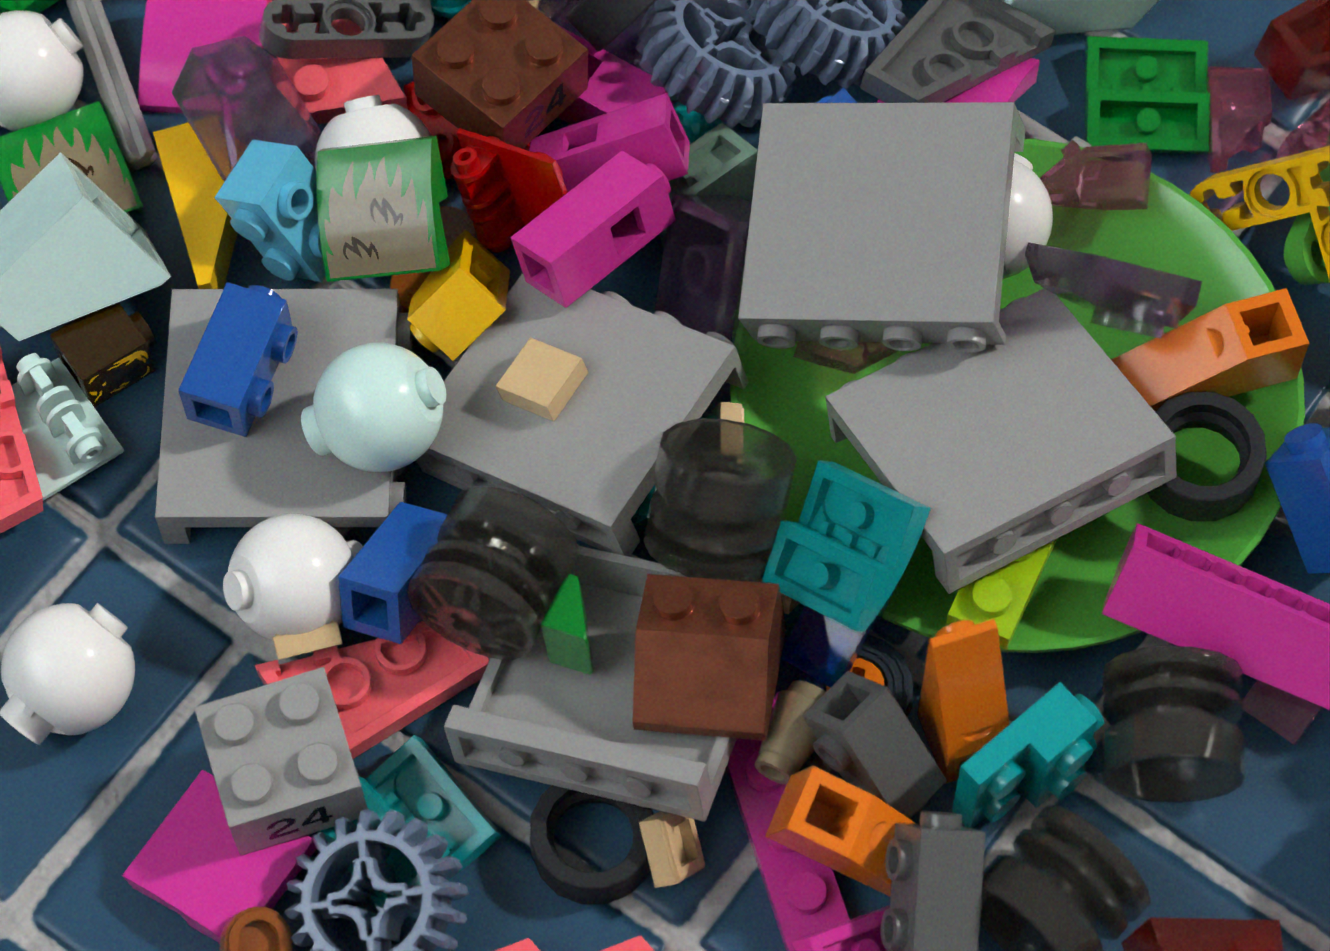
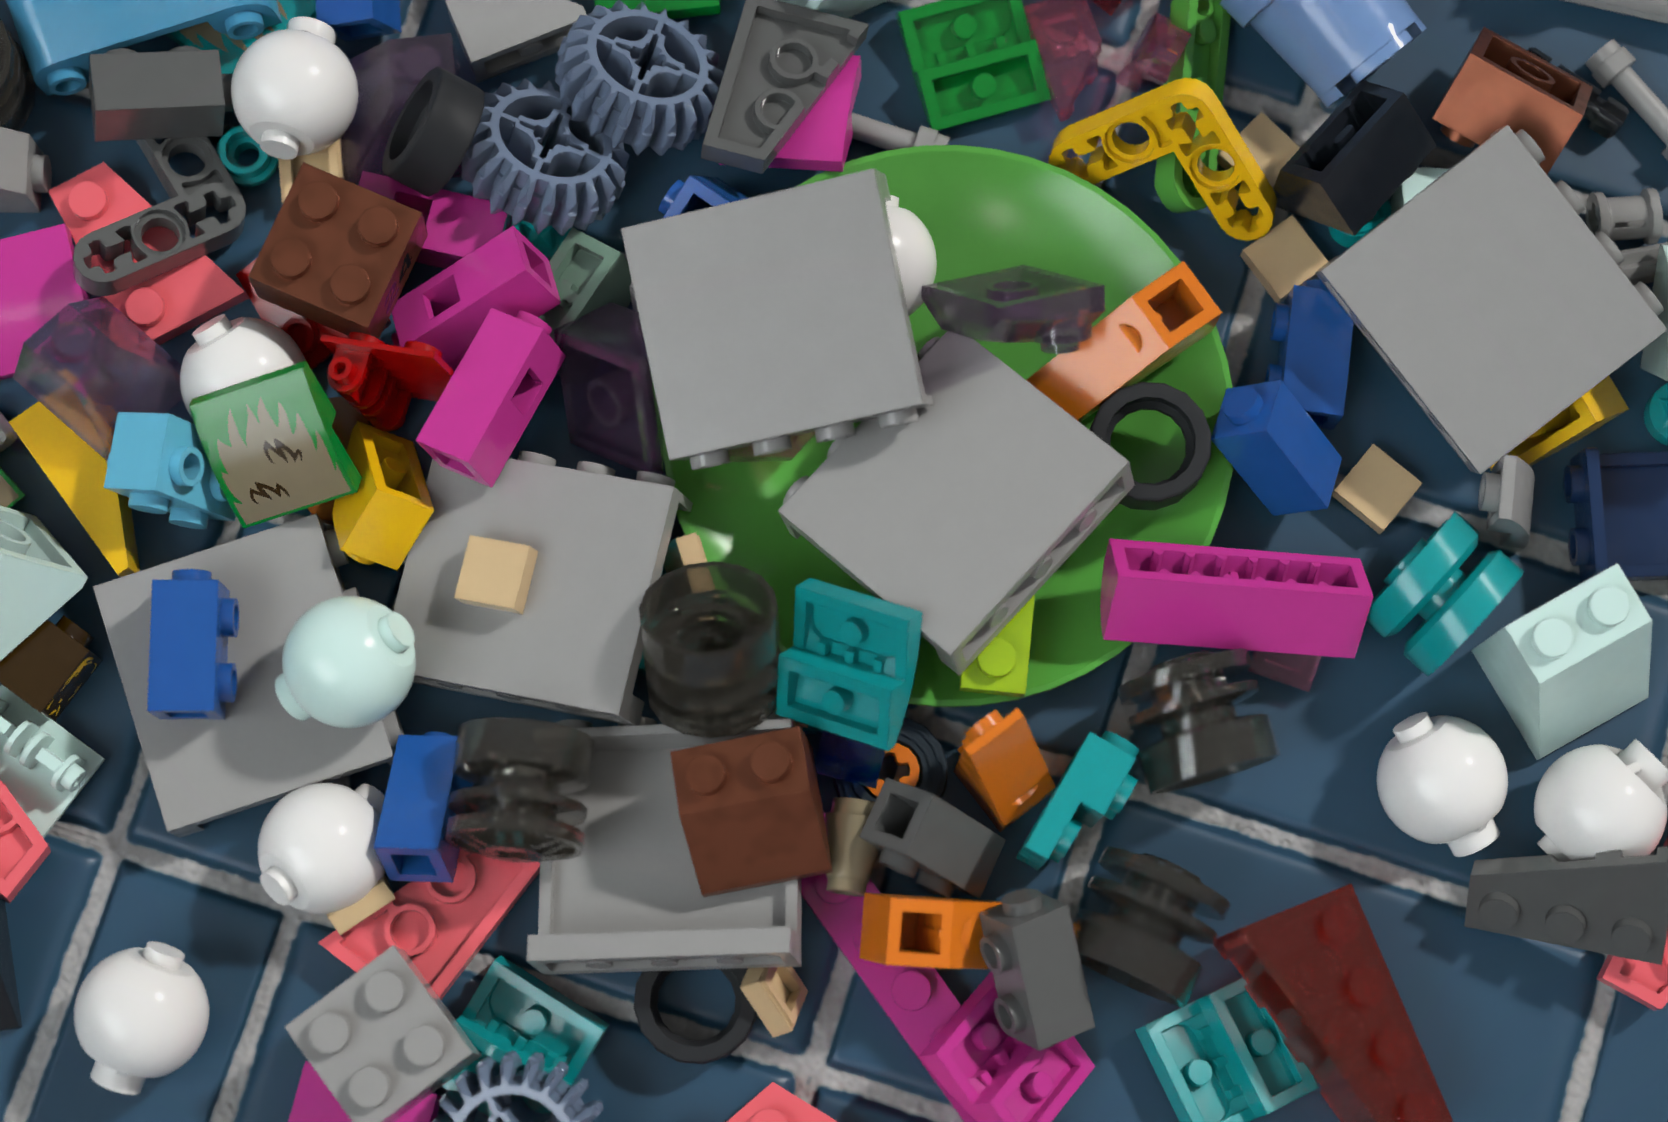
camera: 25 degrees left, 15 degrees up
(567, 628) = (607, 817): green slope -> none
(1101, 177) = (962, 177): clear pink slope -> none

